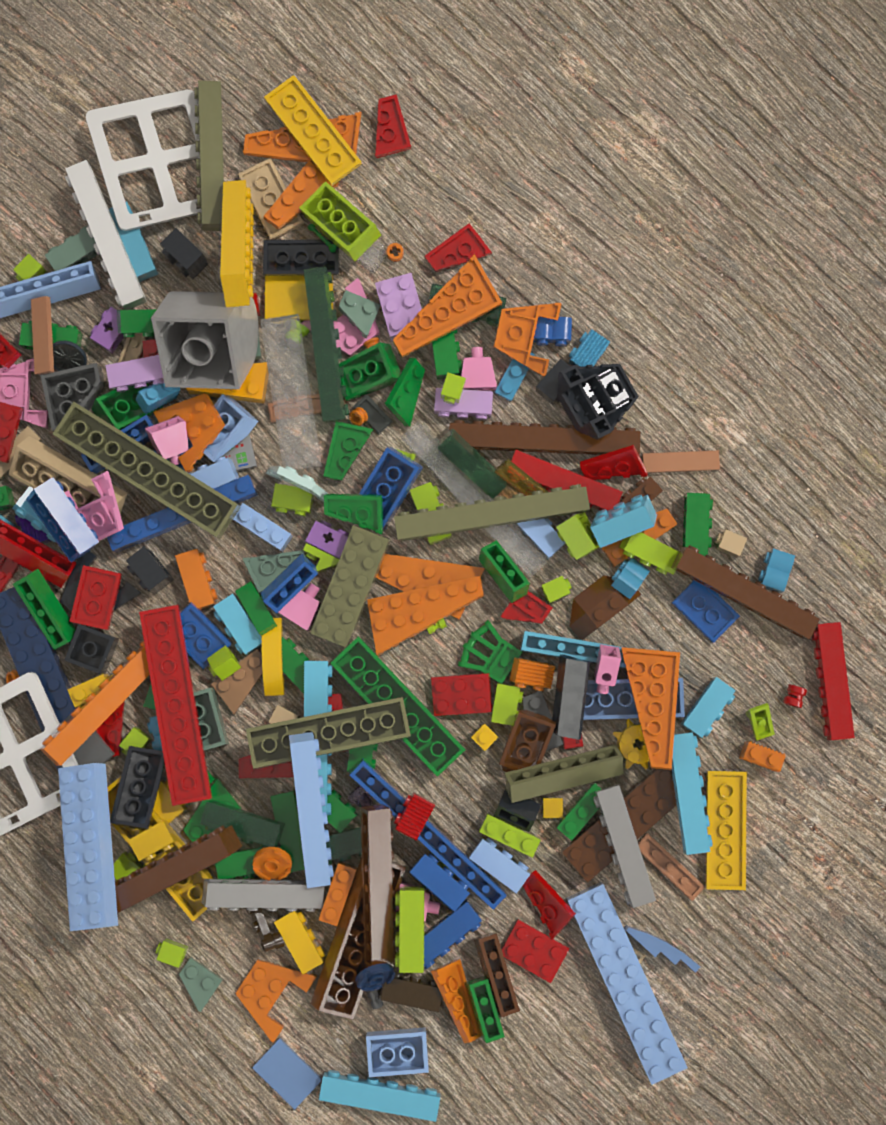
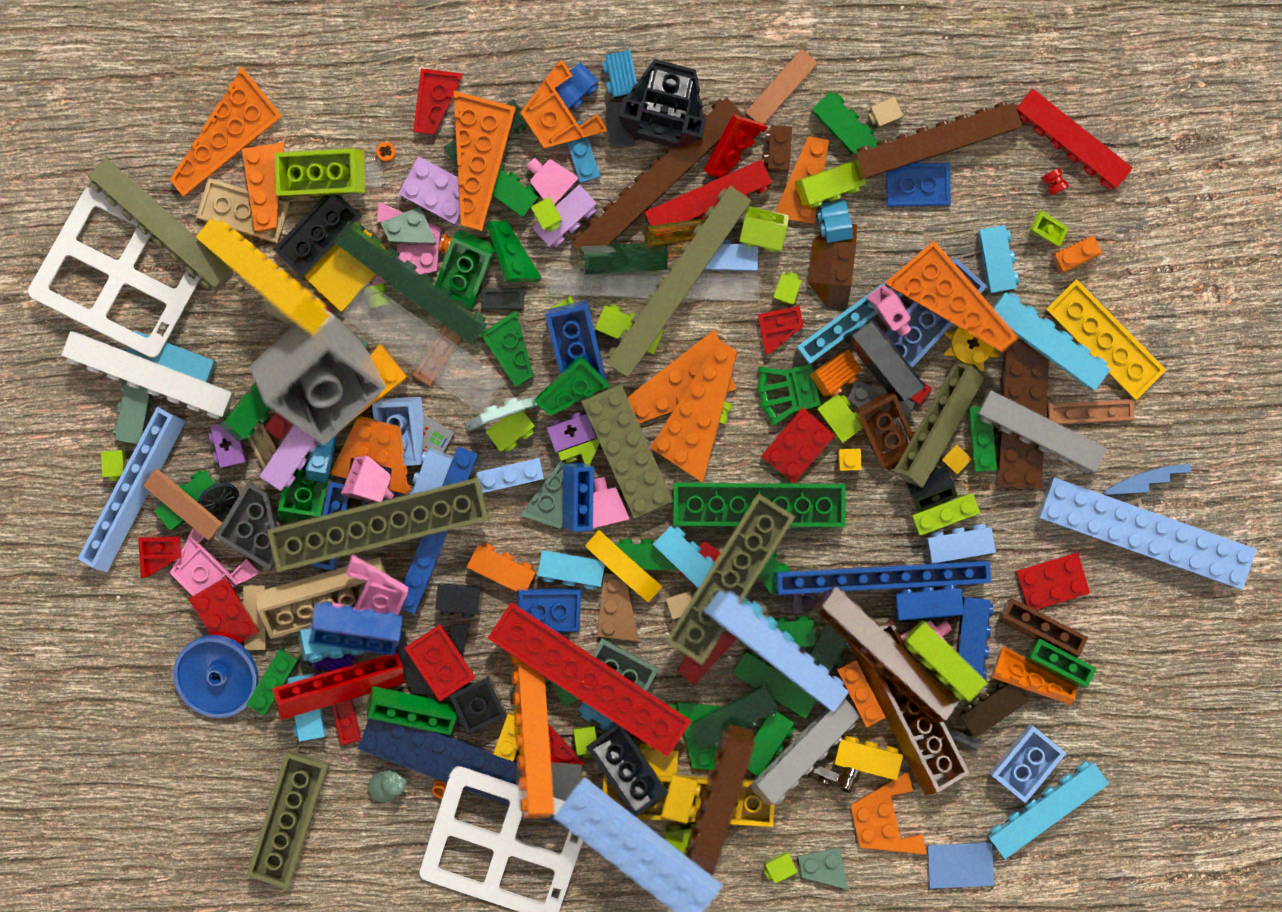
camera: 45 degrees left, 5 degrees up
(184, 253) = (221, 325): black brick -> none
(223, 663) = (590, 610): lime brick -> none
(256, 608) = (571, 543): green tile -> none
(272, 863) = (788, 721): orange tile -> none
(312, 130) = (220, 121): yellow plate -> none
(332, 247) = (334, 200): green hinge -> none
(358, 416) = (494, 312): orange bush -> none
(374, 976) = (953, 723): dark blue tile -> none
(391, 128) = (280, 55): red wing -> none
(414, 815) = (859, 574): red brick -> none
(504, 571) = (733, 316): green brick -> none
(552, 907) = (1029, 534): red wing -> none
(623, 520) = (786, 182): medium azure brick -> none
(776, 570) = (942, 97): dark azure brick -> none

